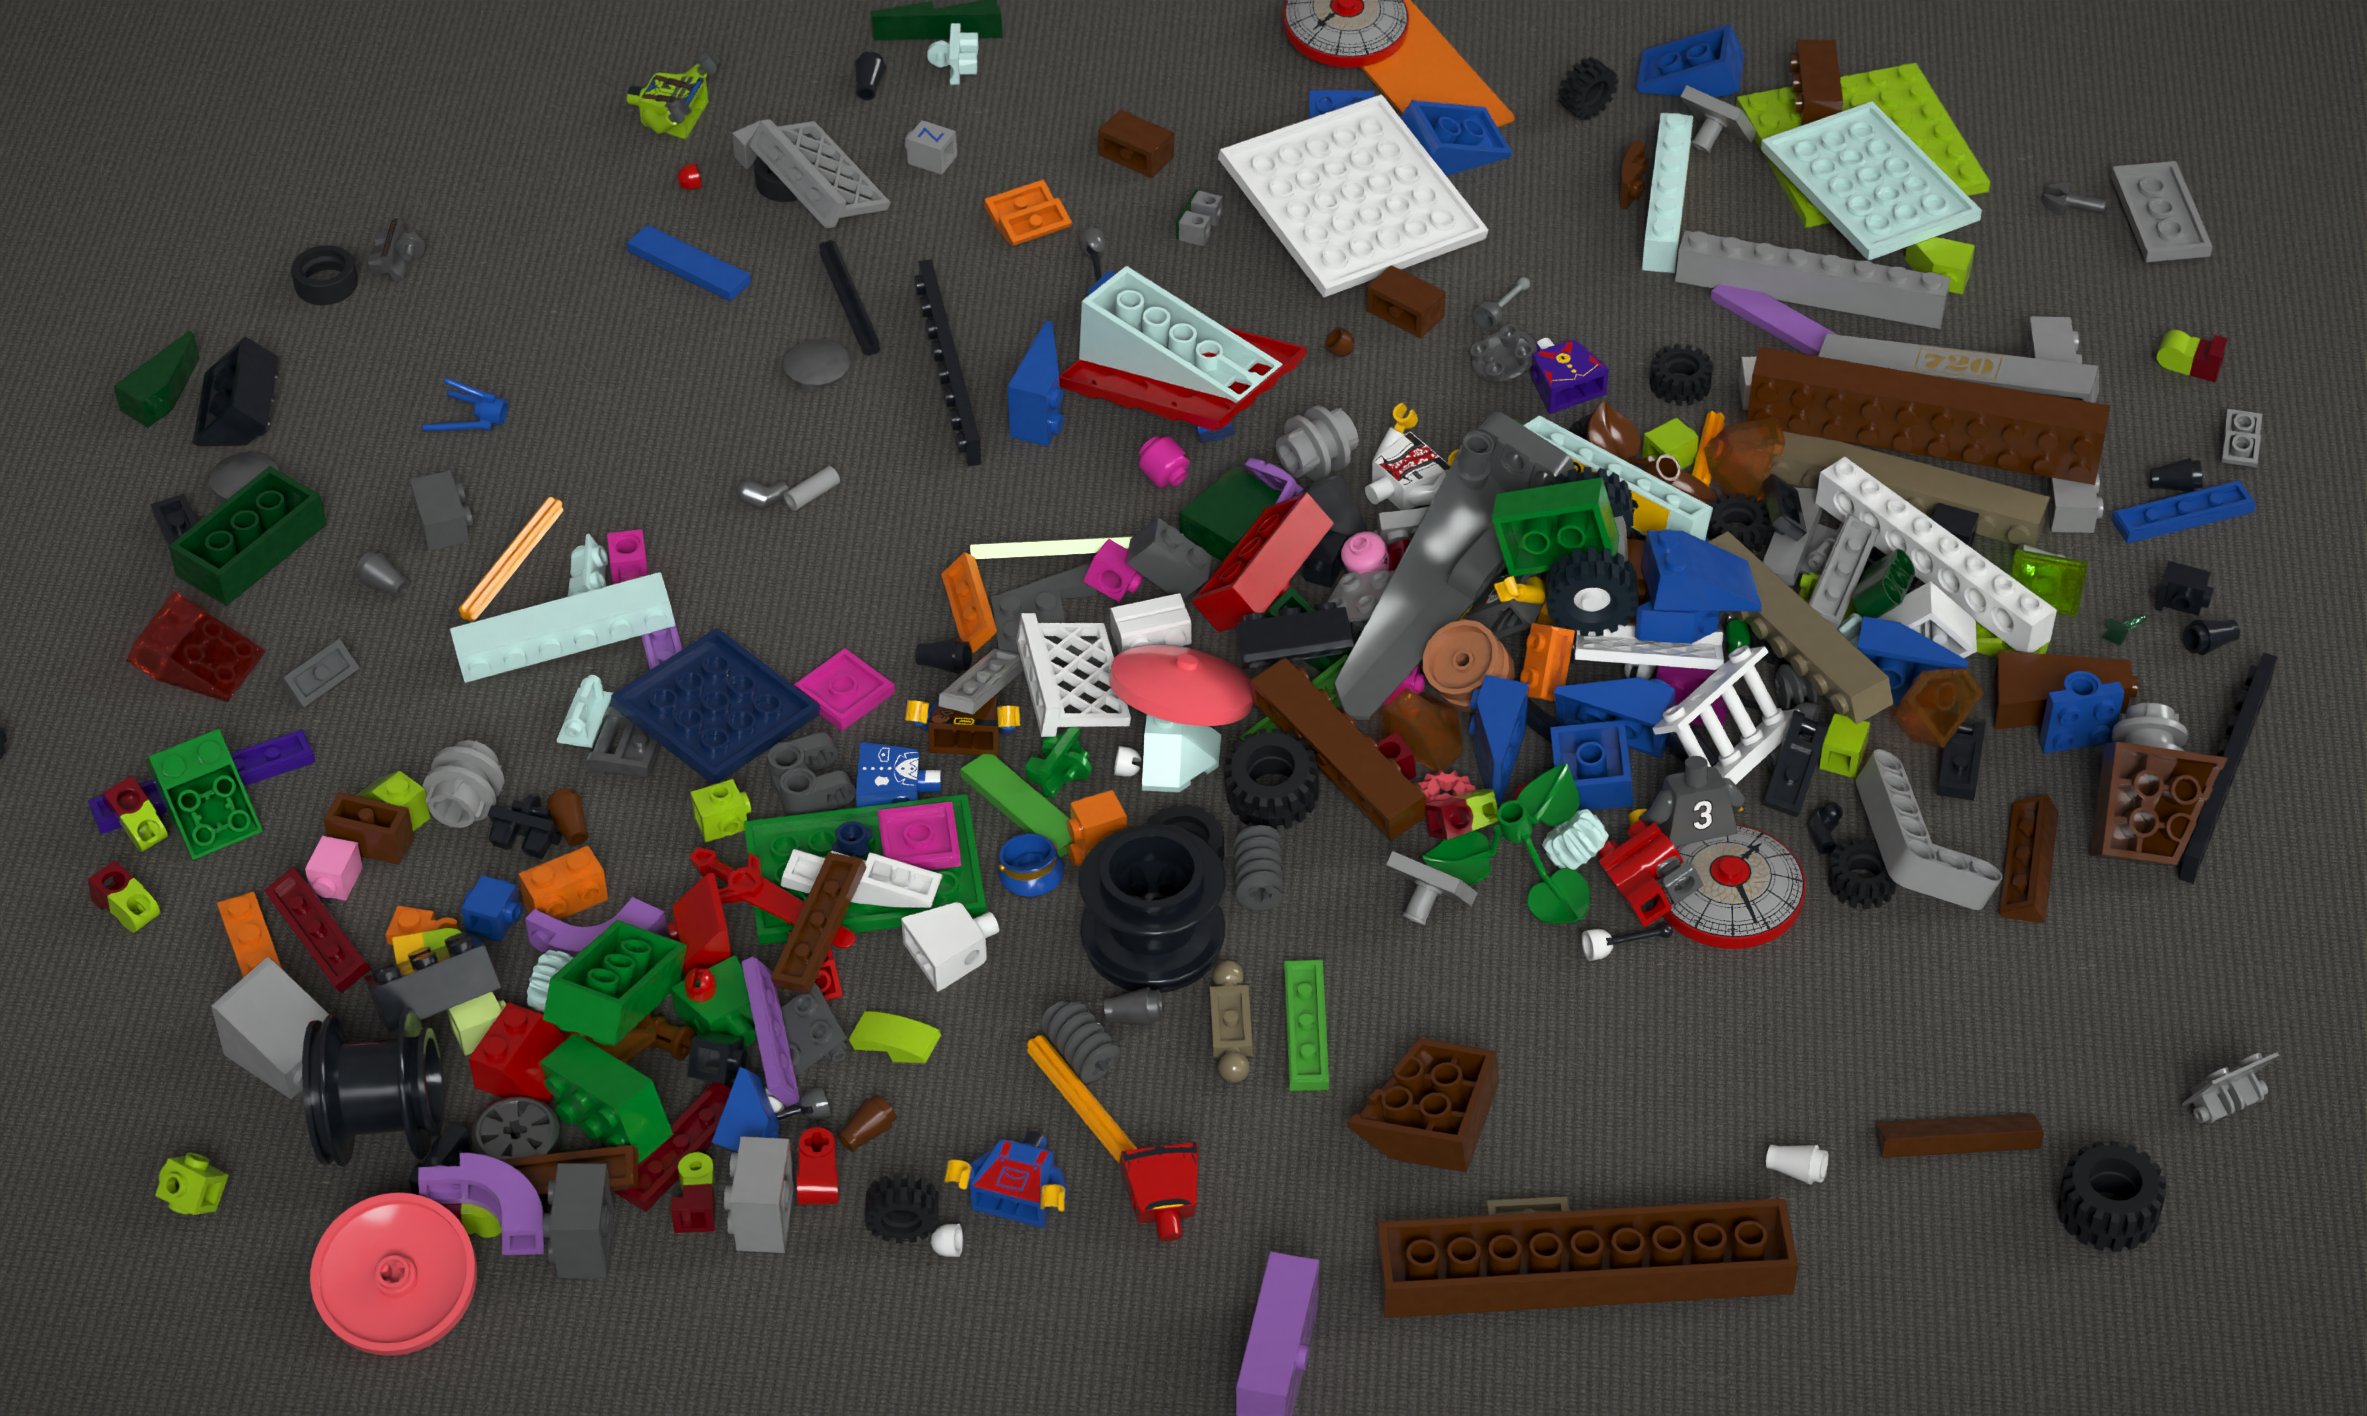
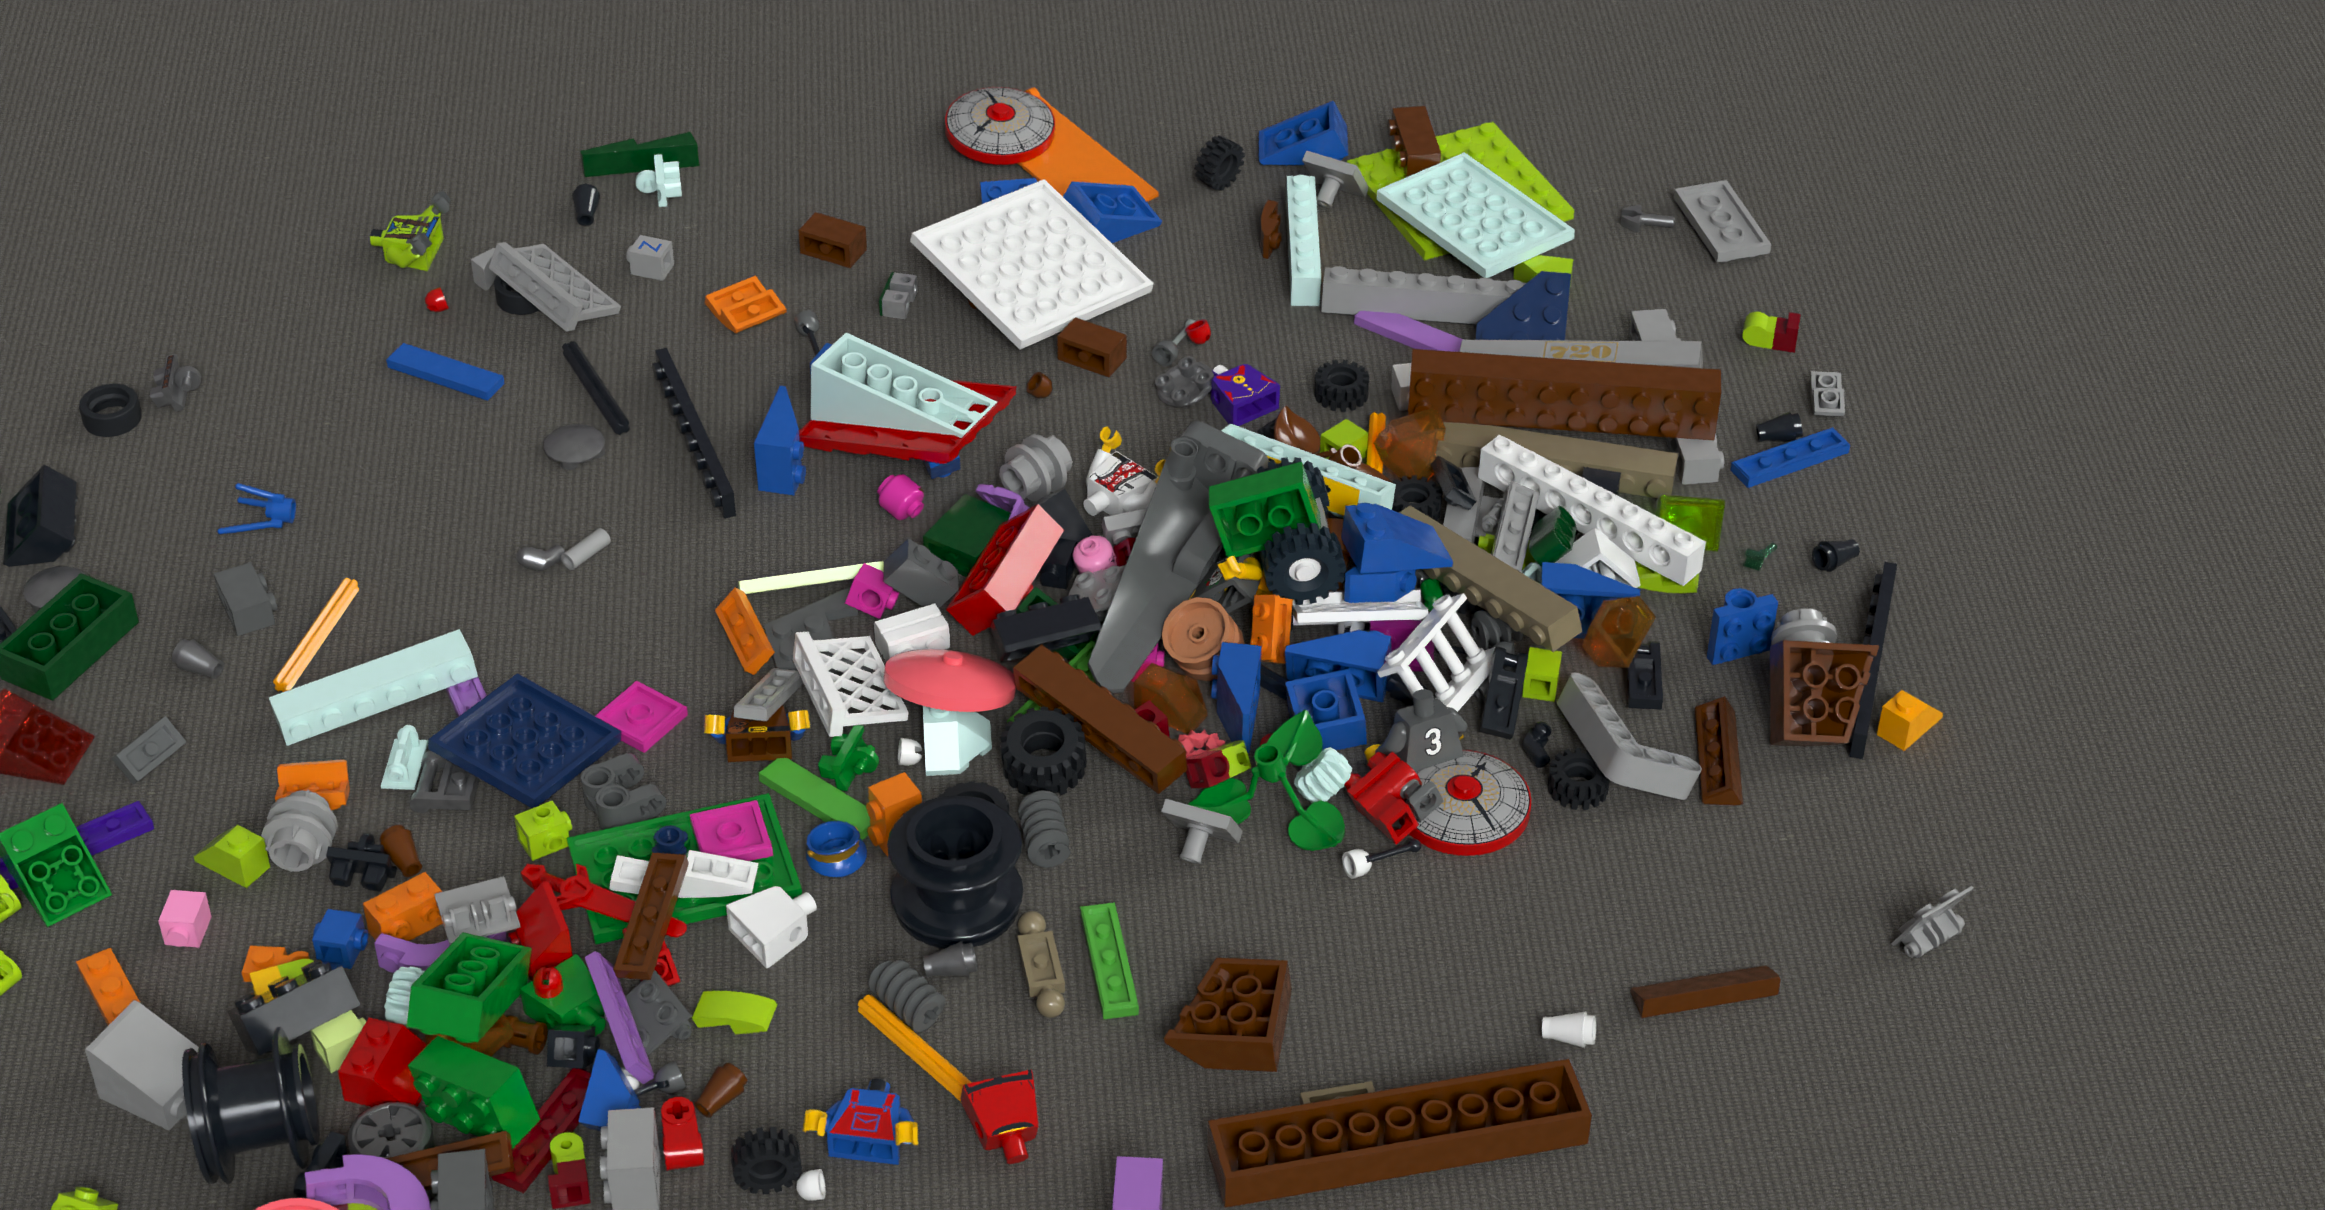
camera: 10 degrees left, 5 degrees down
(317, 930) = (176, 975): dark red plate -> none
(378, 827) = (223, 876): reddish brown brick -> none
(493, 726) = (322, 777): none -> orange bracket
(587, 567) = (389, 633): light aqua hinge -> none
(627, 555) = (424, 619): dark pink brick -> none
(637, 894) = (478, 909): none -> light grey hinge
(892, 775) = (698, 784): blue torso -> none
(946, 655) = (730, 677): black cone -> none
(1530, 293) = (1199, 331): none -> red hinge
(1913, 309) = (1532, 312): none -> dark blue plate
(2027, 678) = (1688, 606): reddish brown slope -> none
(2106, 1220) = (1846, 1047): black tyre -> none
(2184, 589) = (1806, 518): black brick -> none
(2252, 842) = (1906, 720): none -> light orange slope

